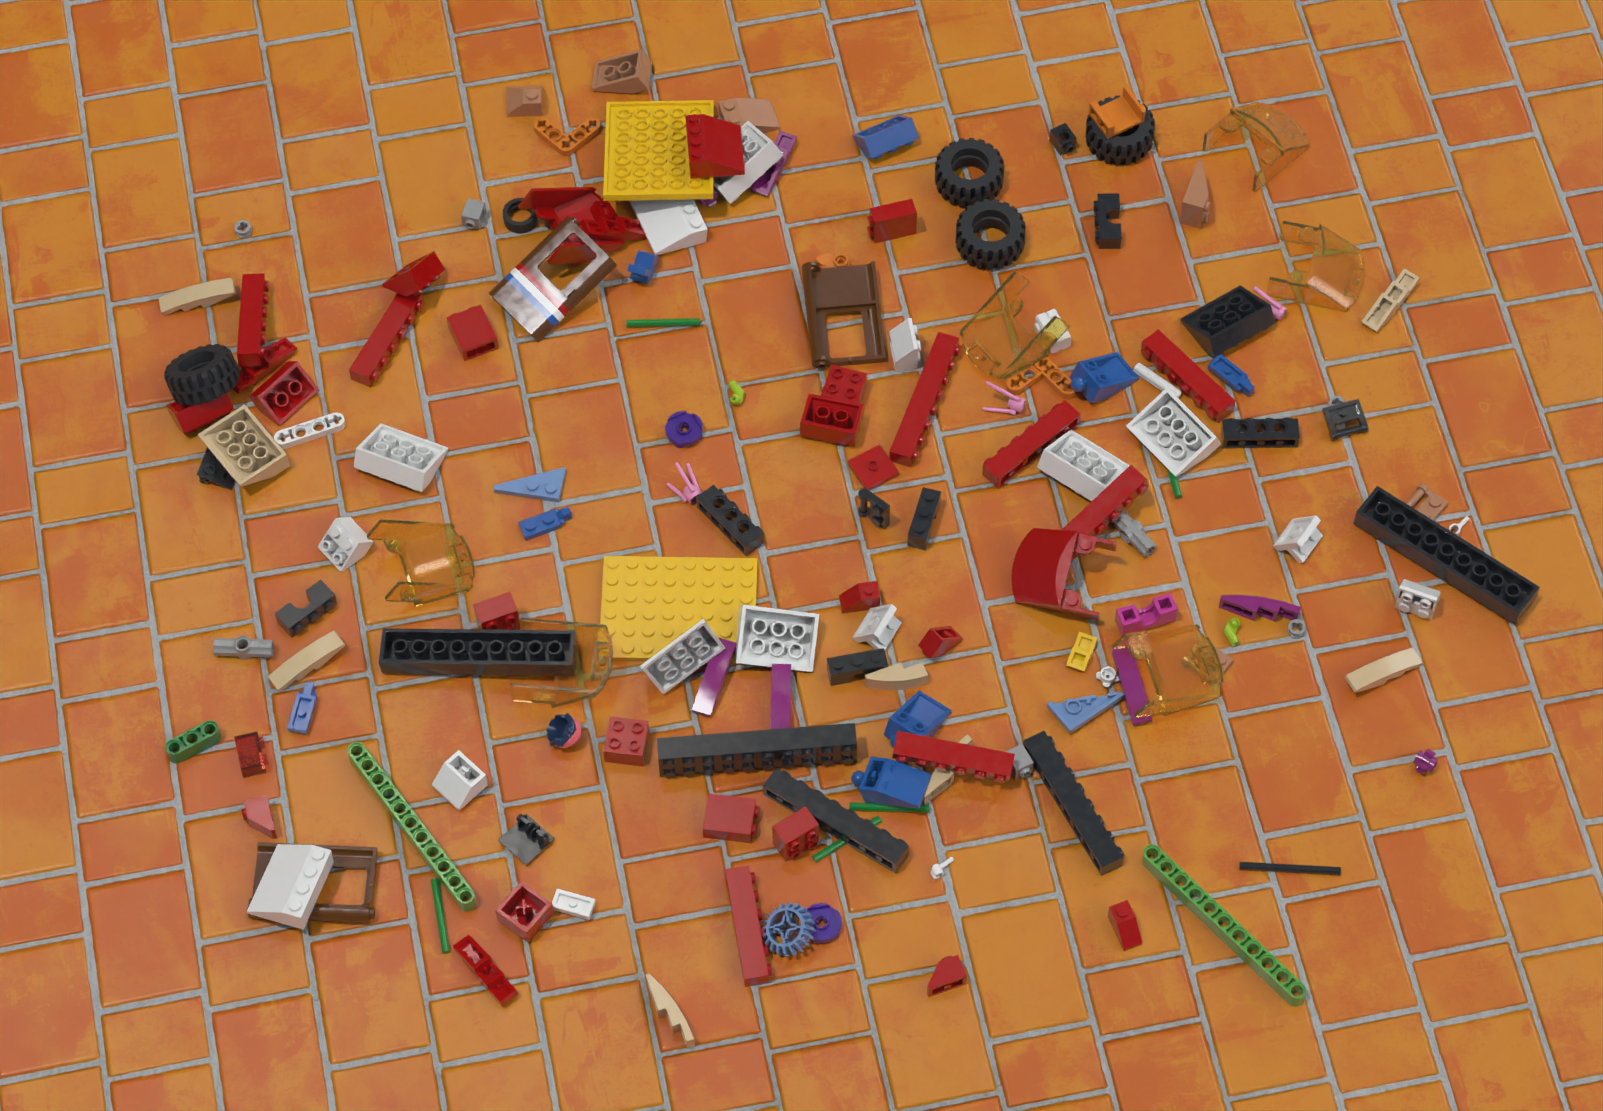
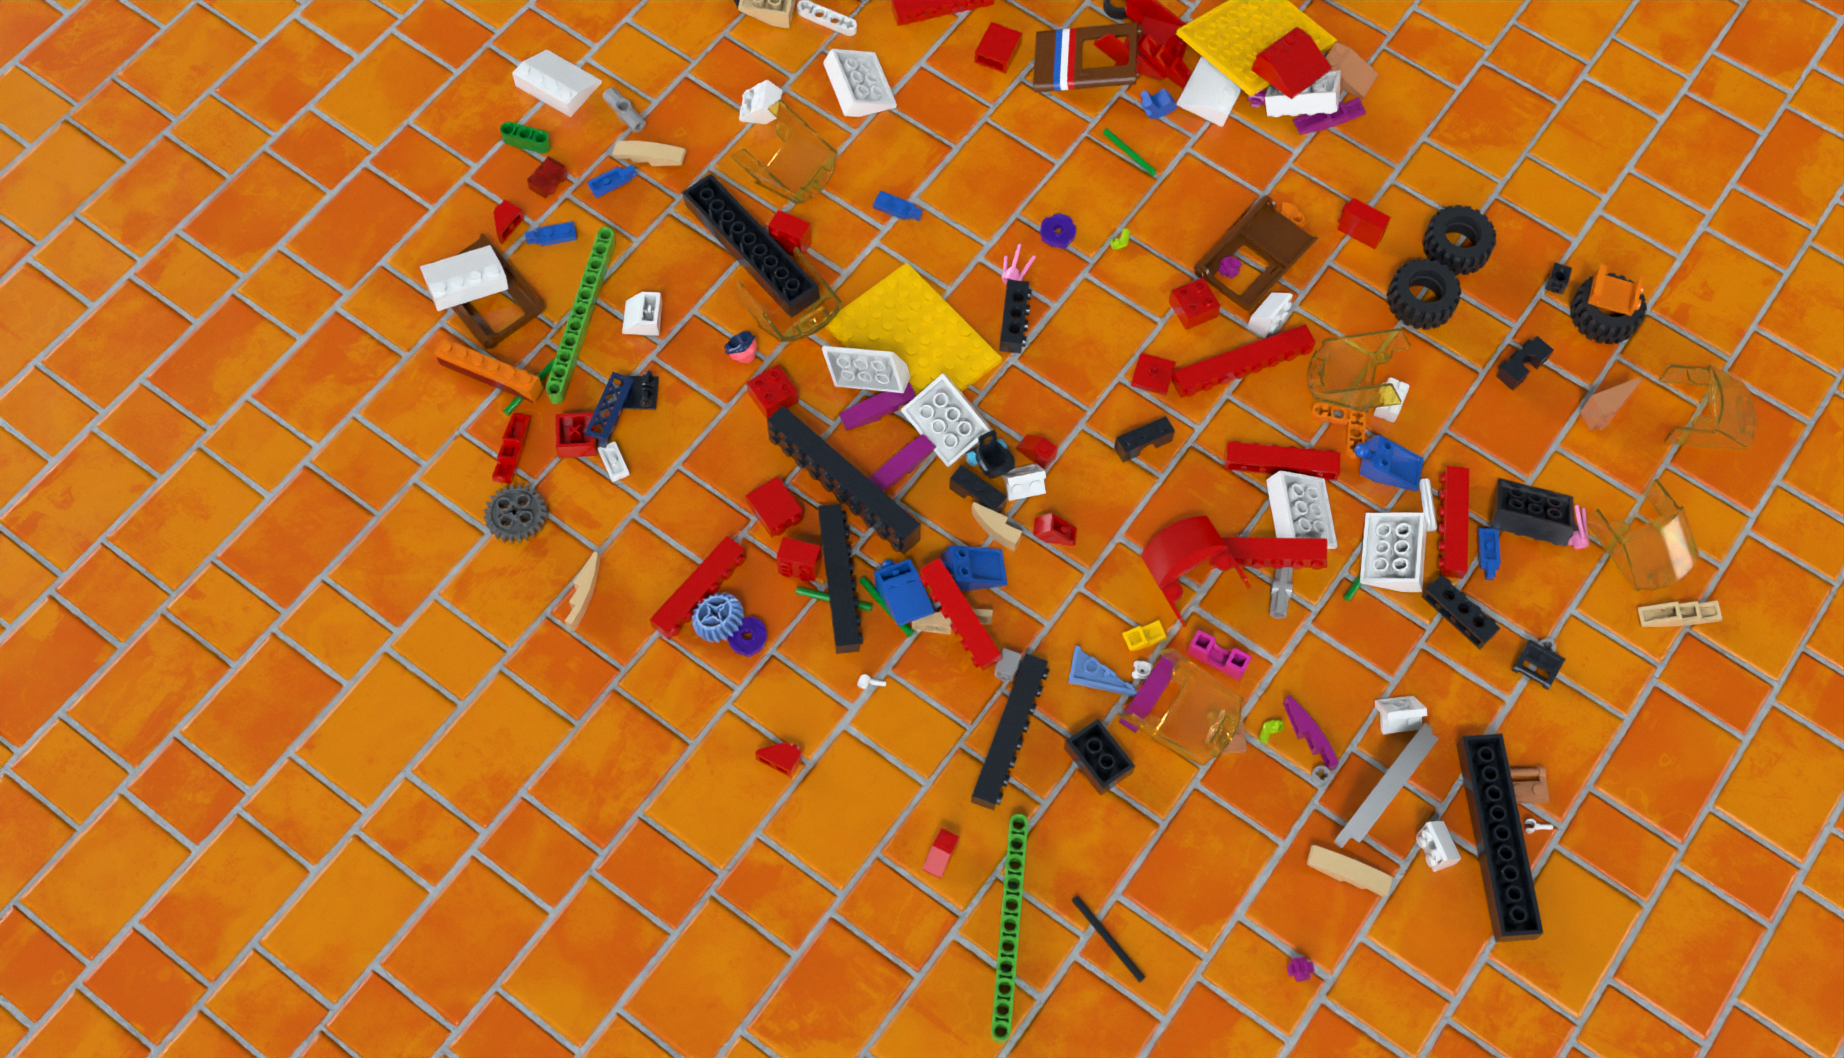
camera: 45 degrees right, 5 degrees up
(158, 678) = (555, 81): none -> white slope
(295, 619) = (701, 125): black arch -> none
(309, 792) = (552, 234): none -> blue hinge
(398, 933) = (489, 370): none -> orange brick
(531, 863) = (615, 413): none -> dark blue fence
(534, 1003) = (517, 528): none -> dark grey gear
(541, 486) = (922, 181): medium blue wing -> none
(831, 420) = (1160, 314): red slope -> none
(837, 340) = (1230, 267): none -> magenta gear
(840, 632) = (992, 458): none -> black piece
(879, 510) = (1115, 397): black plate -> none
(886, 136) = (1429, 166): blue slope -> none
(1015, 403) = (1305, 423): bright pink plant -> none
(1150, 758) = (1099, 757): none -> black brick
(1351, 587) = (1388, 786): none -> light grey gear

